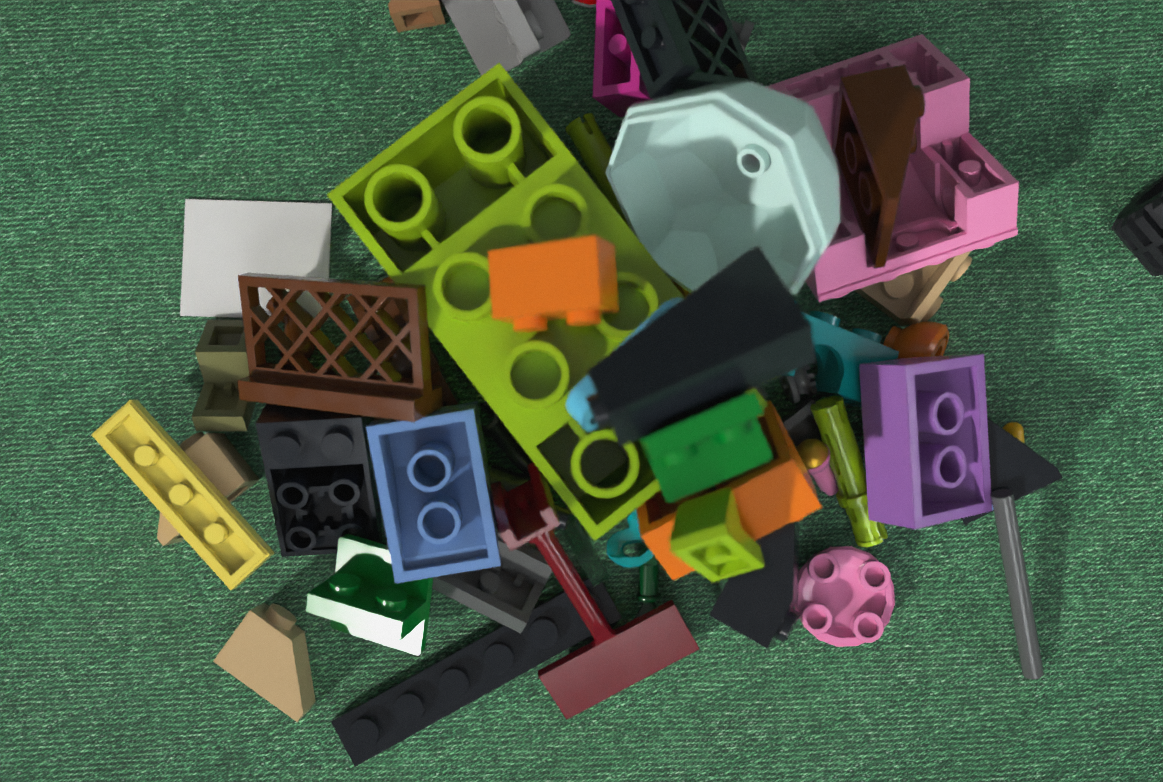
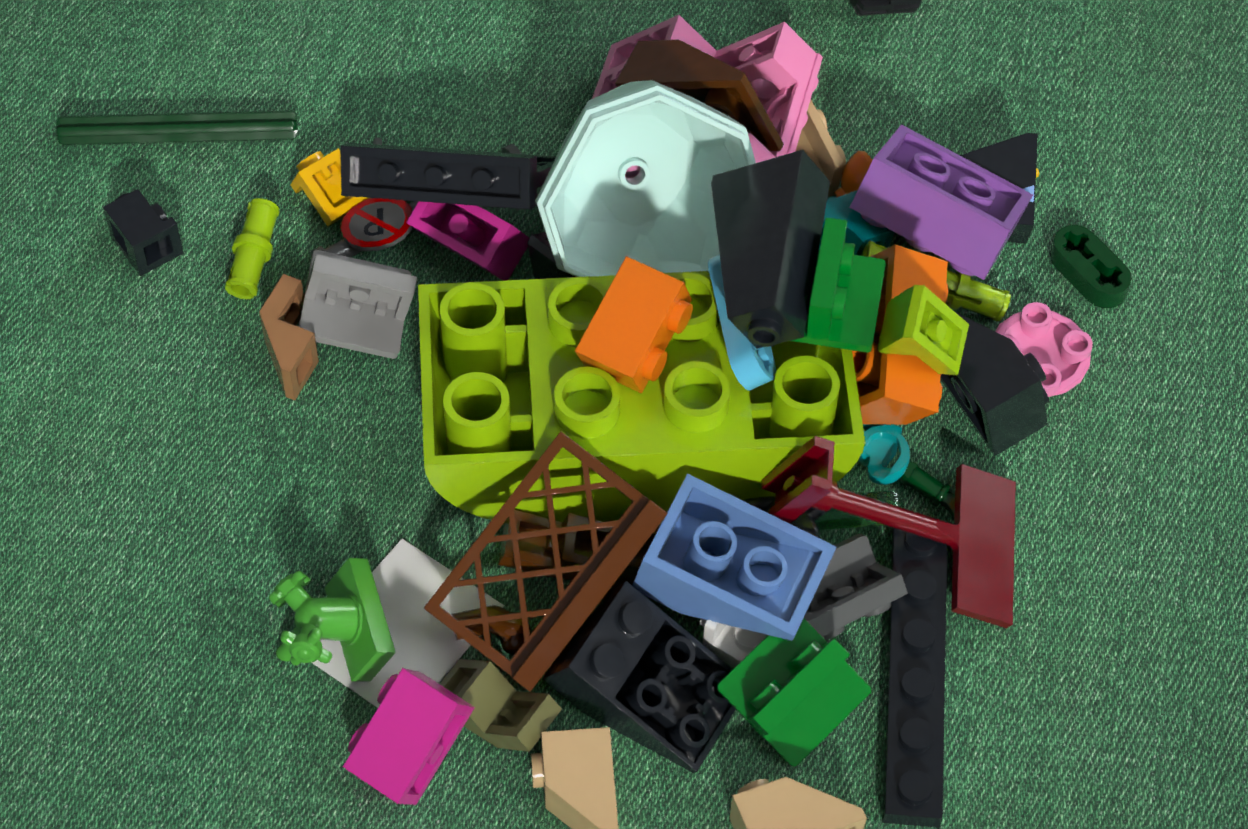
camera: 60 degrees left, 30 degrees down
(142, 334) = (407, 736): none -> dark pink brick
(183, 494) = (584, 778): light yellow tile -> none
(211, 217) = (347, 615): none -> bright green piece
(978, 592) = (1093, 264): none -> dark green beam
(1017, 583) = (1109, 220): dark grey bar -> none

